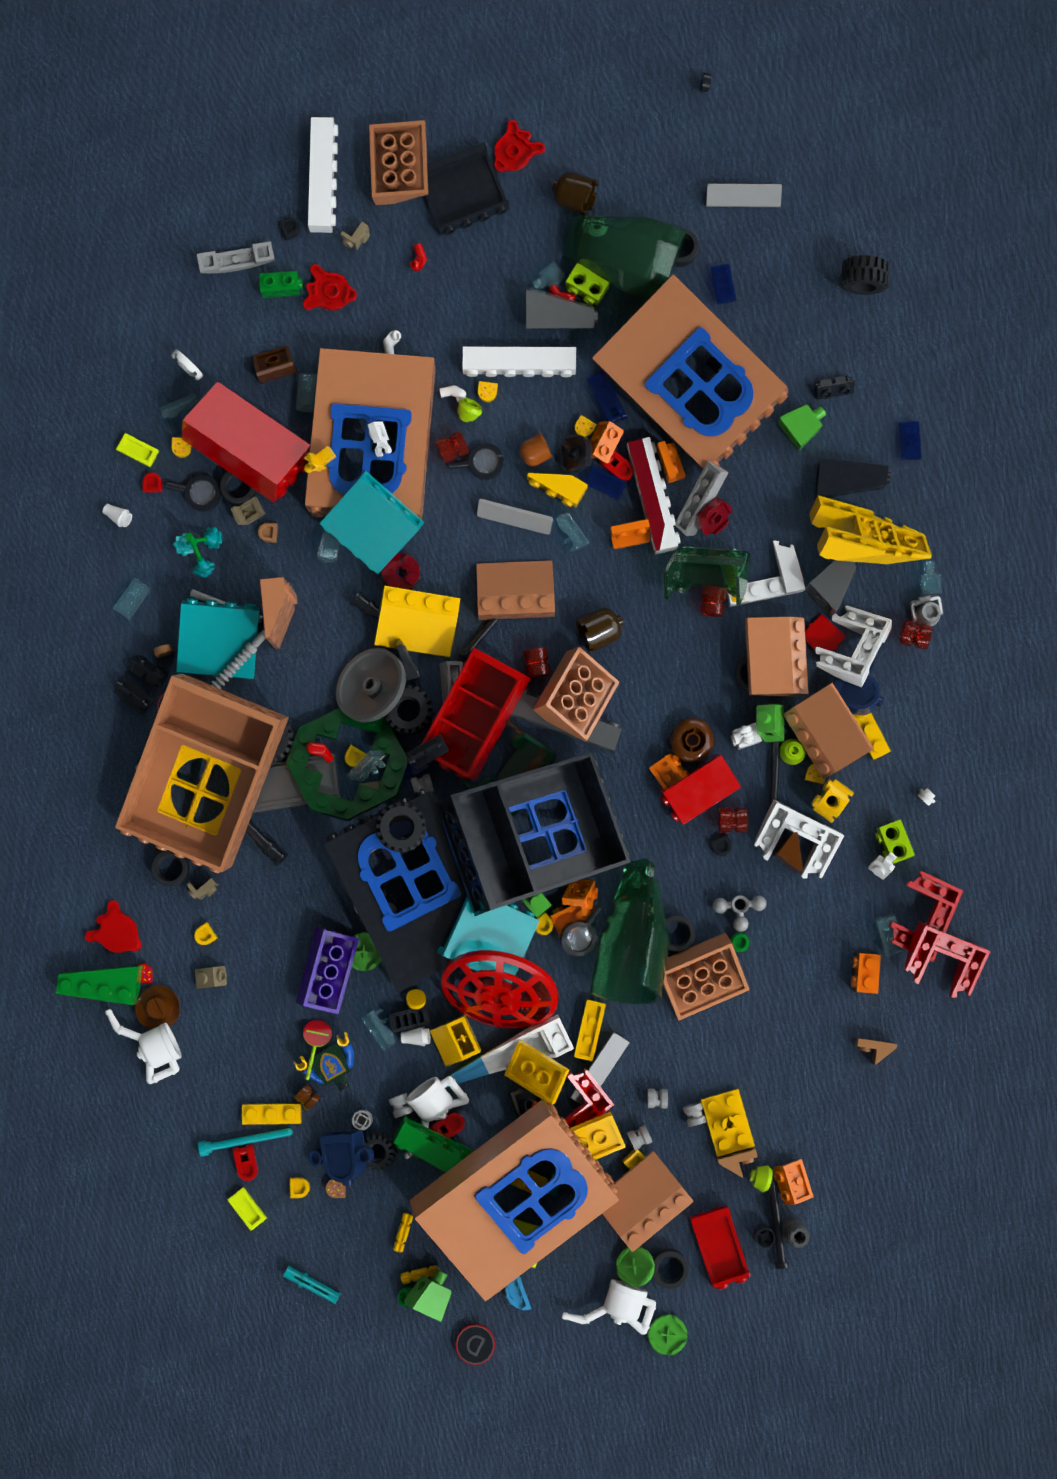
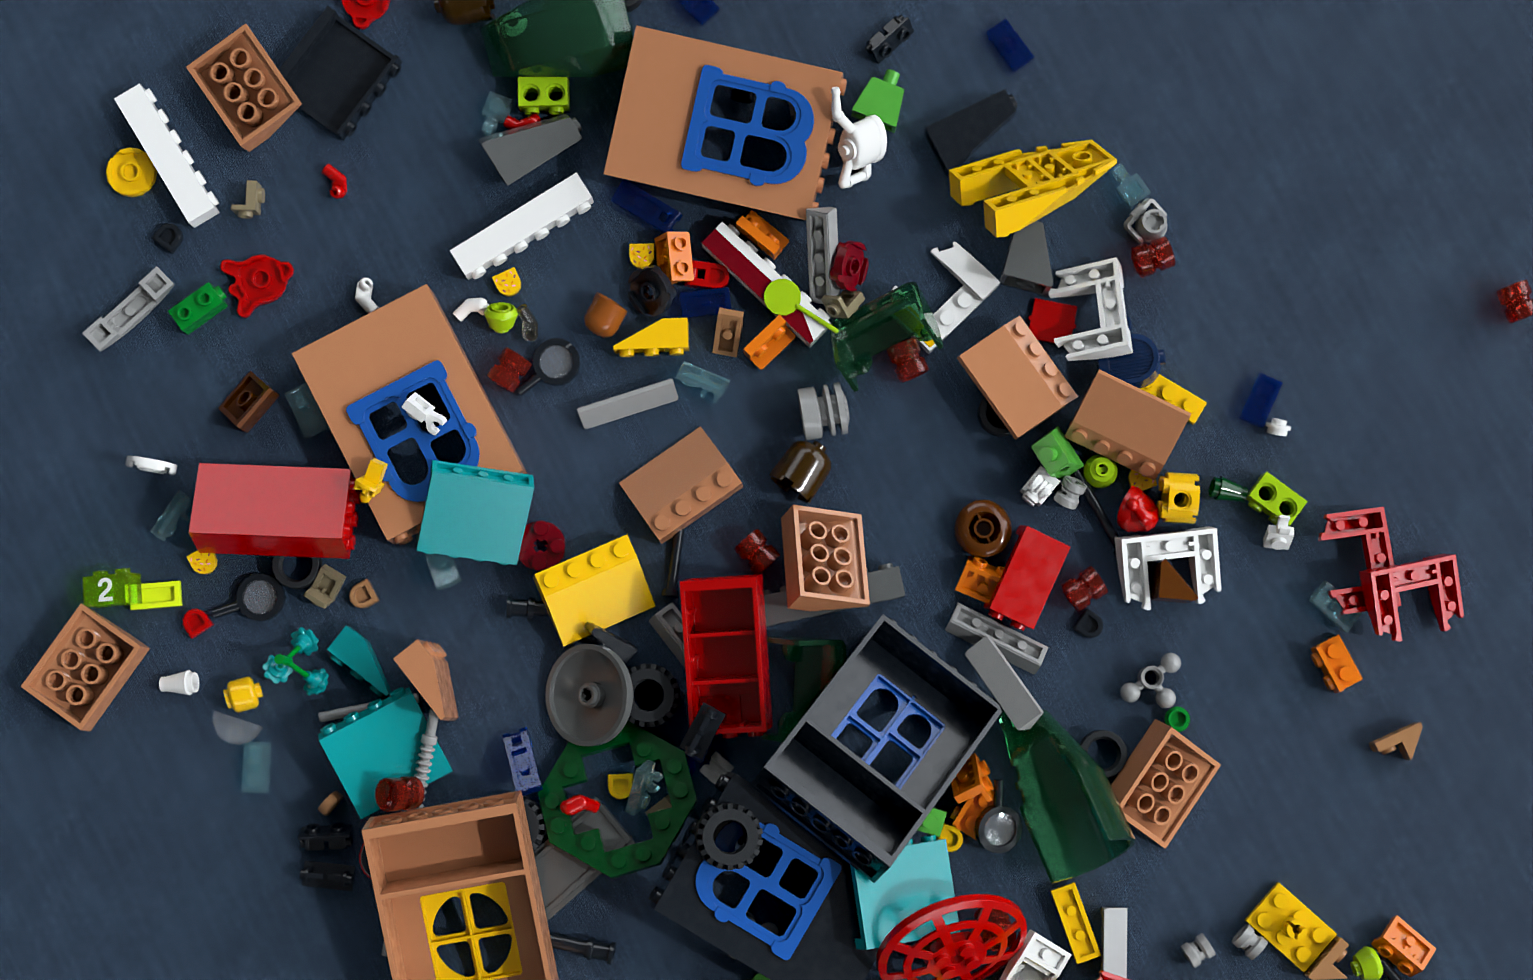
camera: 30 degrees left, 0 degrees up
(64, 467) = (85, 668): none -> nougat slope
(112, 428) = (112, 589): none -> clear neon green brick
(133, 566) = (234, 729): none -> clear plate
(152, 546) = (242, 694): none -> yellow head
(210, 670) = (399, 793): none -> clear red wheel
(241, 569) = (359, 655): none -> teal slope
(292, 171) = (131, 172): none -> yellow tile
(301, 701) = (522, 762): none -> clear blue plate
(484, 425) = (529, 325): none -> clear smoke arm
(608, 511) = (728, 332): none -> medium nougat slope
(636, 599) = (823, 411): none -> light grey wheel
(641, 846) = (1004, 683): none -> light grey slope
(655, 816) = (1013, 645): none -> light grey slope
(657, 511) = (784, 298): none -> lime piece
(693, 539) = (844, 304): none -> dark tan bracket
(763, 752) = (1070, 492): none -> light grey wheel
(771, 442) = (859, 143): none -> white piece
(799, 791) = (1137, 511): none -> red piece
(867, 816) = (1226, 490): none -> dark green cone
(927, 772) = (1261, 400): none -> clear blue plate

